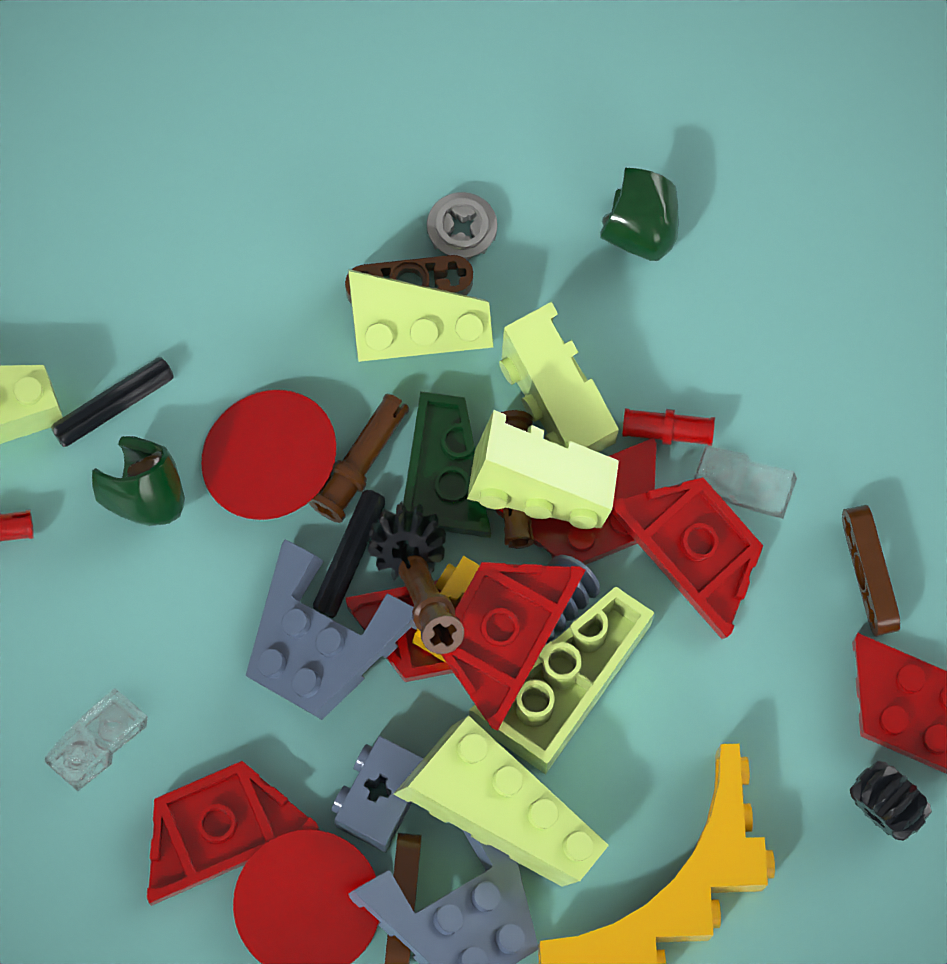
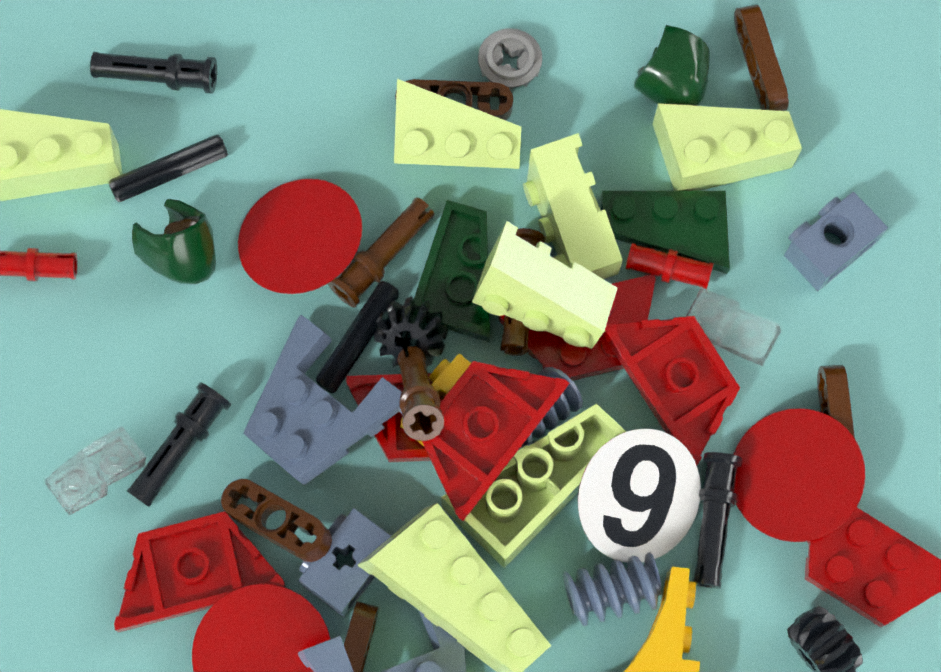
camera: 10 degrees right, 0 degrees up
(100, 295) = (173, 71): none -> black pin
(188, 678) = (189, 428): none -> black pin
(310, 776) = (284, 535): none -> reddish brown beam
(663, 377) = (672, 220): none -> dark green wing
(663, 777) = (614, 589): none -> sand blue piece
(675, 676) = (639, 495): none -> white sticker
(705, 287) = (723, 144): none -> yellowish green wedge
(732, 187) = (761, 58): none -> reddish brown beam
(757, 669) = (717, 498): none -> black pin
(830, 396) = (821, 260): none -> sand blue brick
(836, 628) = (798, 475): none -> red sticker

